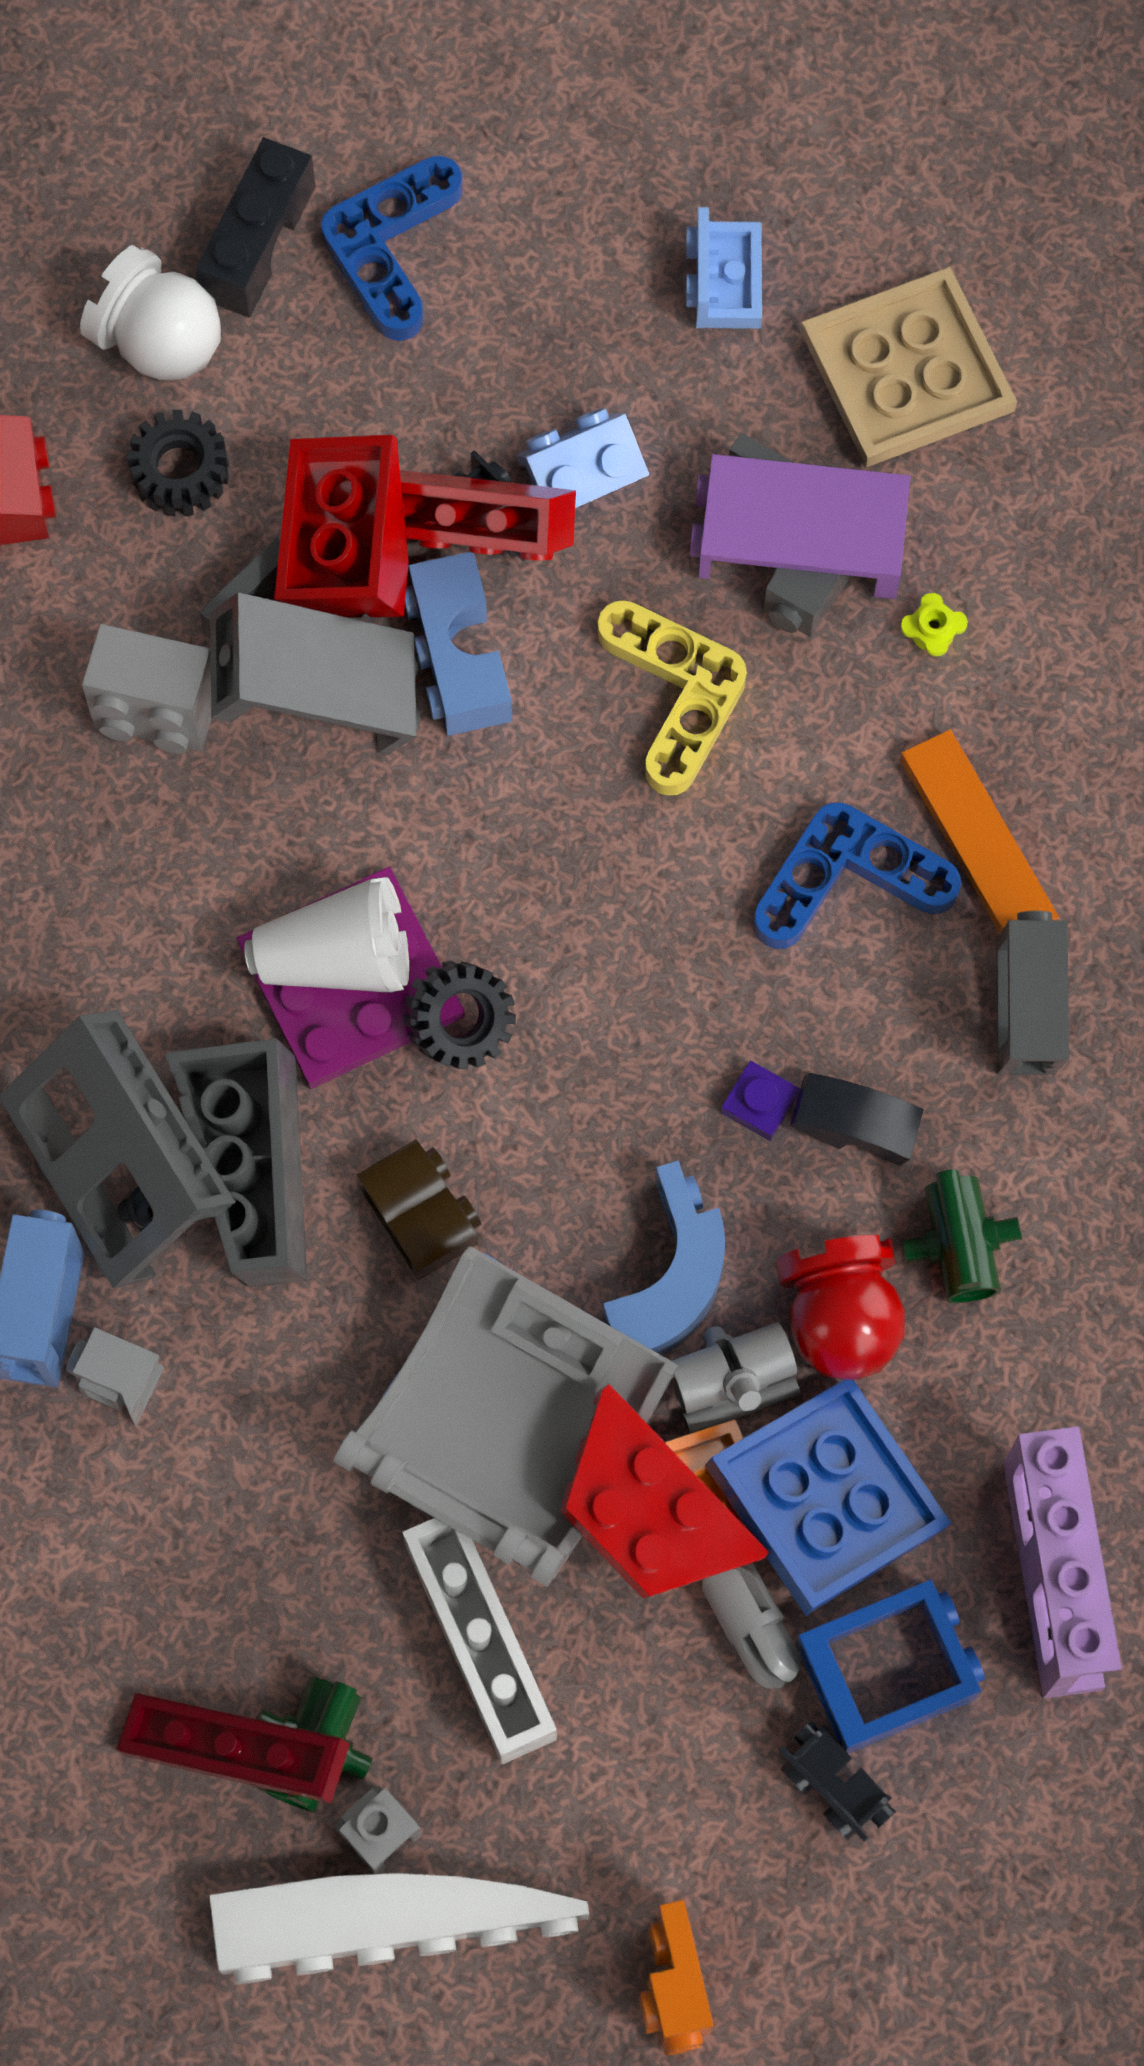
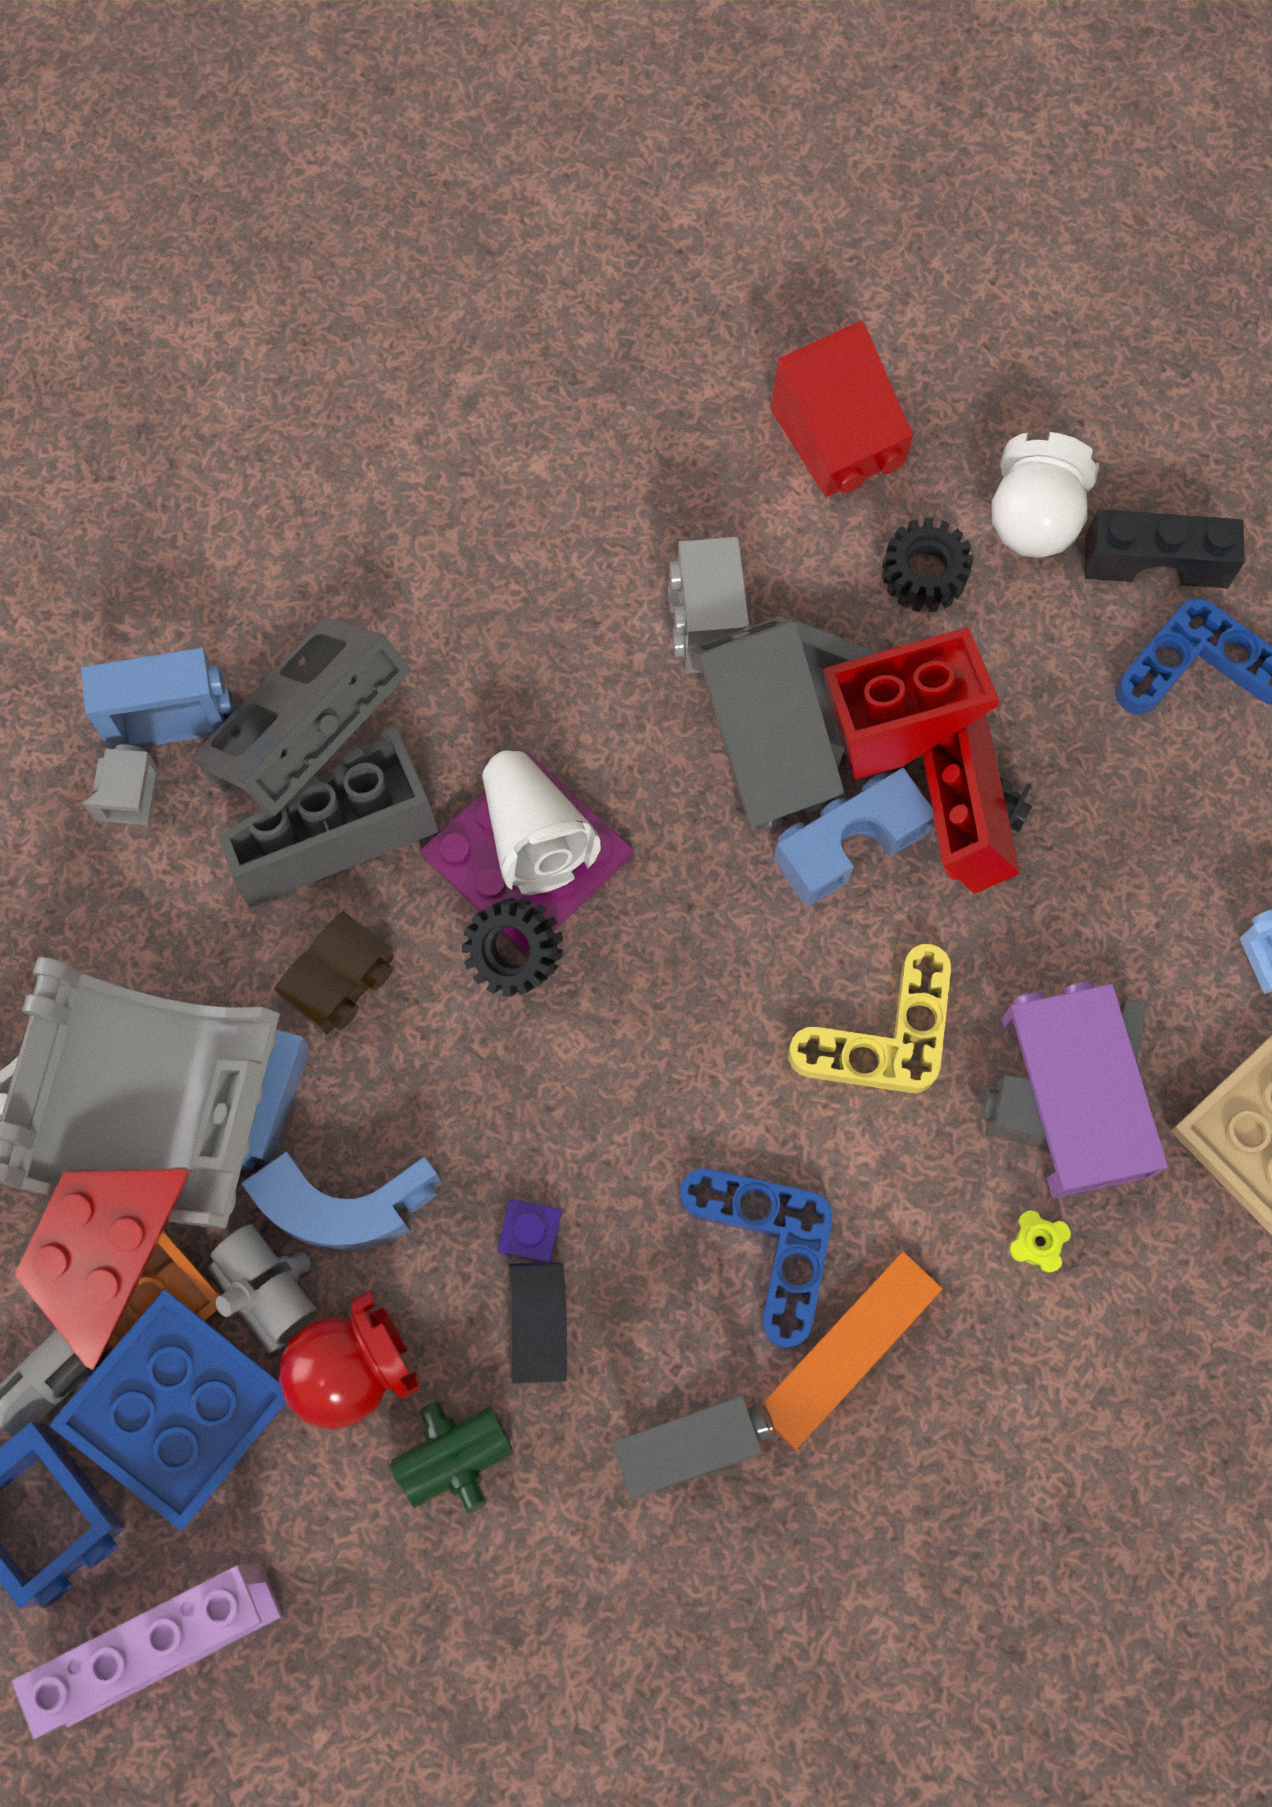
camera: 70 degrees right, 0 degrees up
(589, 459) = (1067, 883): light blue bracket -> none

